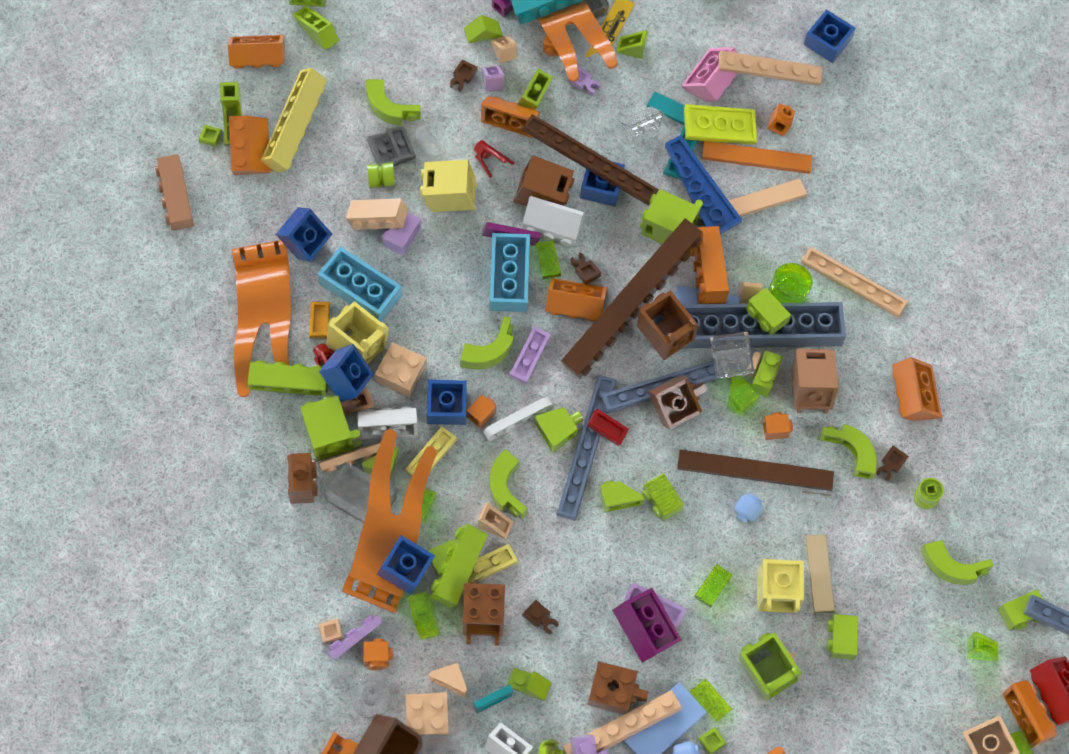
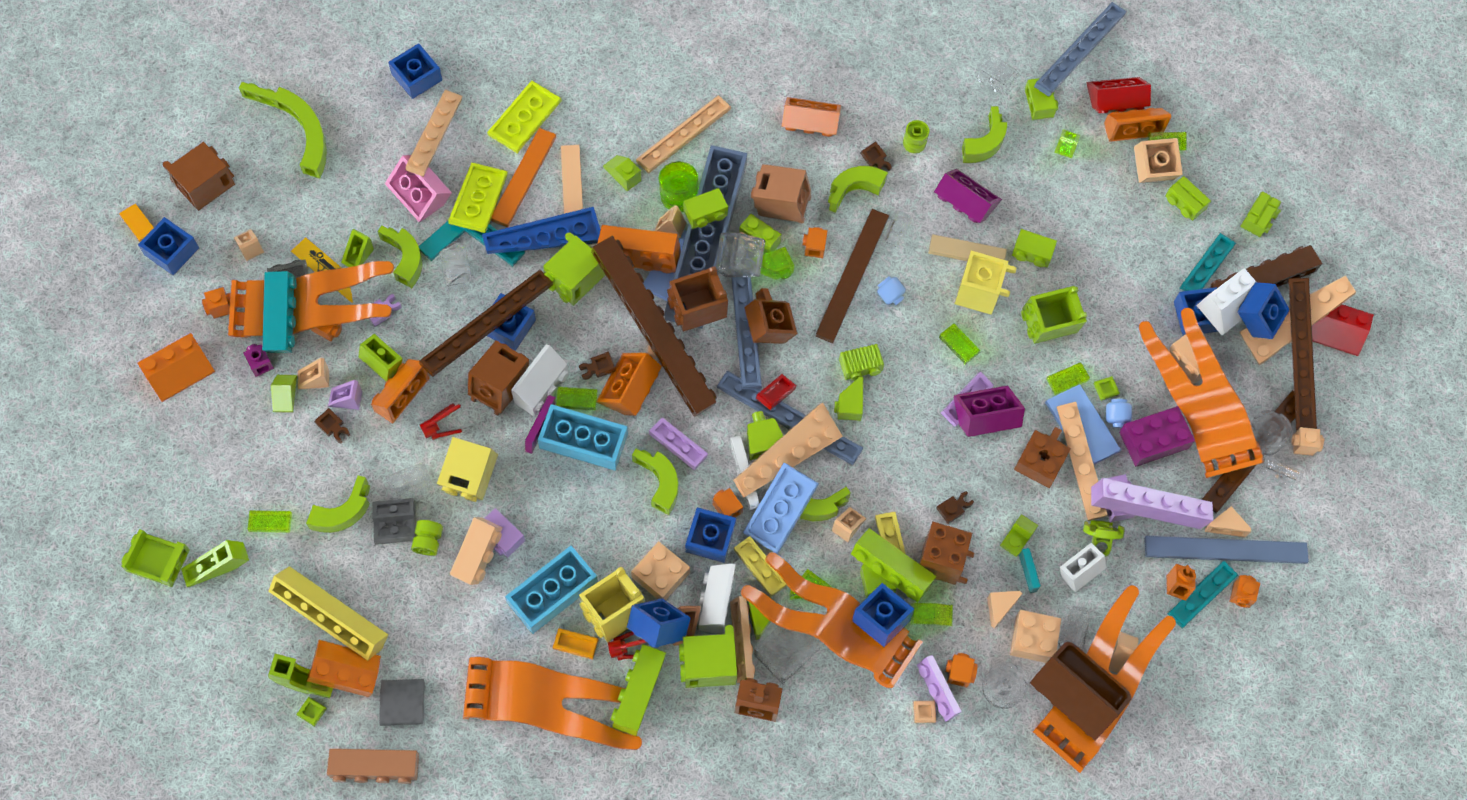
camera: 75 degrees left, 0 degrees up
(233, 199) = (401, 702): none -> flat silver slope
(256, 51) = (221, 634): orange slope -> none
(304, 234) = (476, 632): blue brick -> none
(364, 55) = (269, 521): none -> clear neon green tile
(489, 455) = (781, 508): none -> light blue tile
(557, 456) = (799, 443): none -> light nougat wing
(642, 88) = (410, 266): none -> lime arch
(781, 119) = (493, 140): orange brick -> none
(791, 238) = (623, 171): none -> lime slope
(821, 141) = (524, 116): none -> neon yellow tile
(882, 559) = (967, 195): none -> magenta slope

